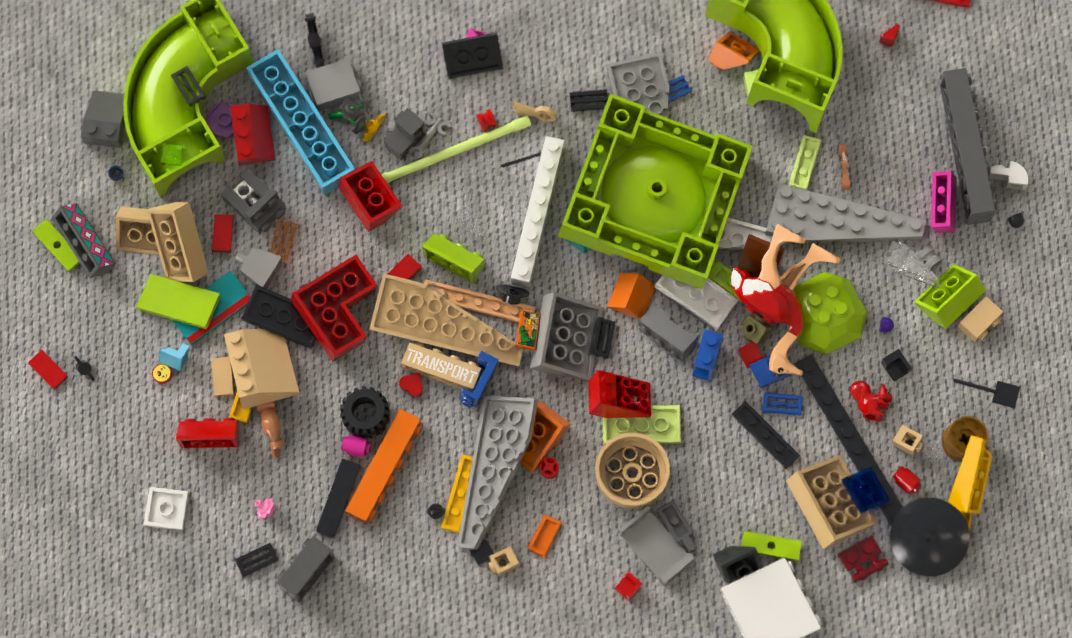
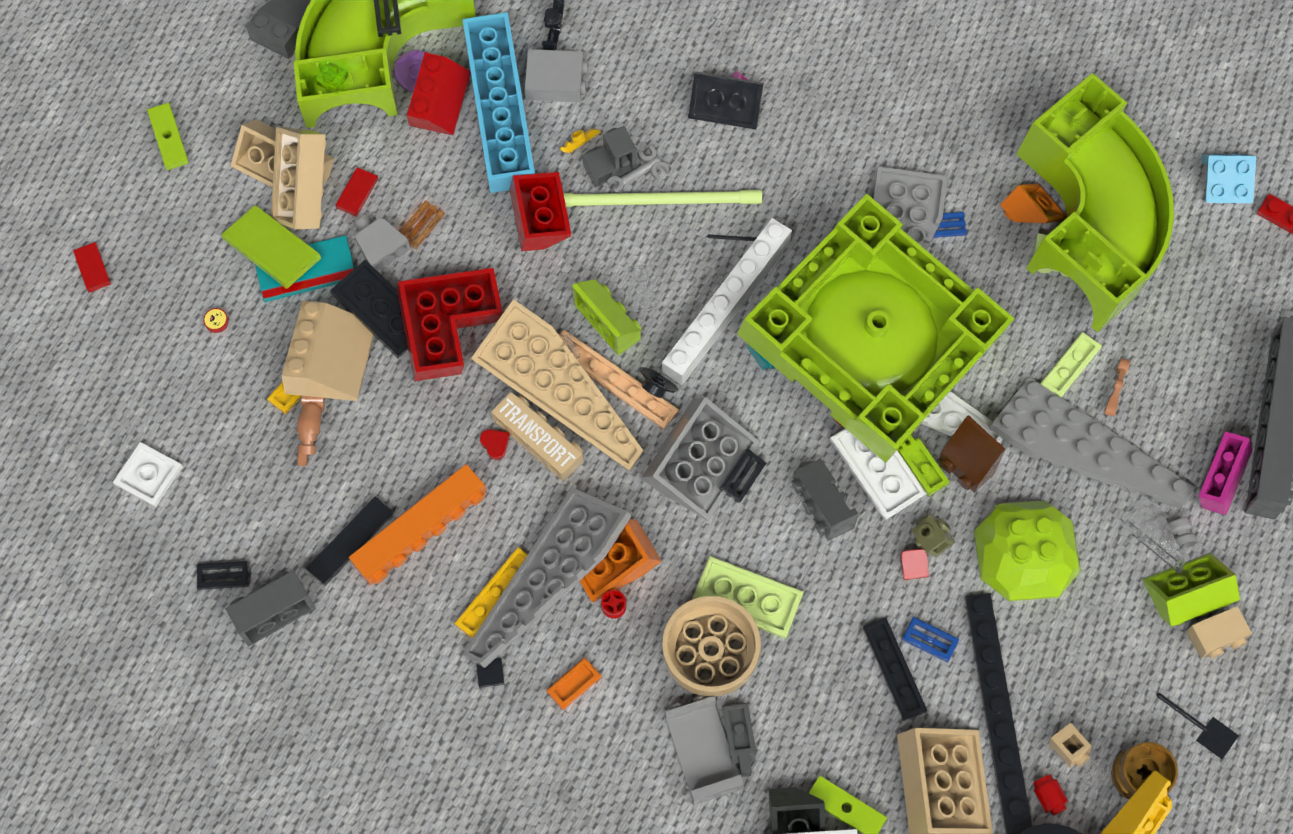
camera: 20 degrees right, 5 degrees down
(83, 240) = (197, 140): dark grey brick -> none
(83, 367) = (131, 279): black piece -> none
(112, 170) = (266, 79): dark blue hinge -> none
(174, 358) = (236, 307): medium azure panel -> none
(208, 433) = (233, 407): red slope -> none
(222, 376) = (278, 350): tan tile -> none
(262, 211) = (410, 176): dark grey brick -> none
(265, 508) = (259, 518): bright pink plant -> none
(350, 111) = (559, 108): dark grey plant -> none
(356, 446) = (397, 488): dark pink brick -> none
(359, 397) = (424, 471): black tyre -> none
(406, 268) = (547, 308): red tile -> none
(436, 515) = (456, 596): black hinge -> none
(486, 120) = (712, 178): red wheel -> none
(489, 365) = (592, 457): blue panel -> none
(507, 555) = (515, 686): tan brick -> none
(527, 330) = (656, 431): tile -> none
(543, 112) = (779, 192): tan piece -> none
(588, 100) = (838, 191): black tile -> none
(618, 396) = (733, 551): red slope -> none
(628, 586) = (649, 787): red panel -> none
(632, 294) = (799, 439): orange slope -> none
(707, 355) = (861, 543): blue panel -> none
(763, 375) = (947, 591): blue piece -> none
(775, 296) = (973, 503): animal -> none
(866, 491) = (992, 787): clear blue slope -> none
(870, 403) = (1041, 682): red animal -> none
(886, 325) = (1097, 593): dark purple hinge -> none
(890, 36) = (1231, 257): red slope -> none
(896, 365) = (1091, 647): black panel -> none

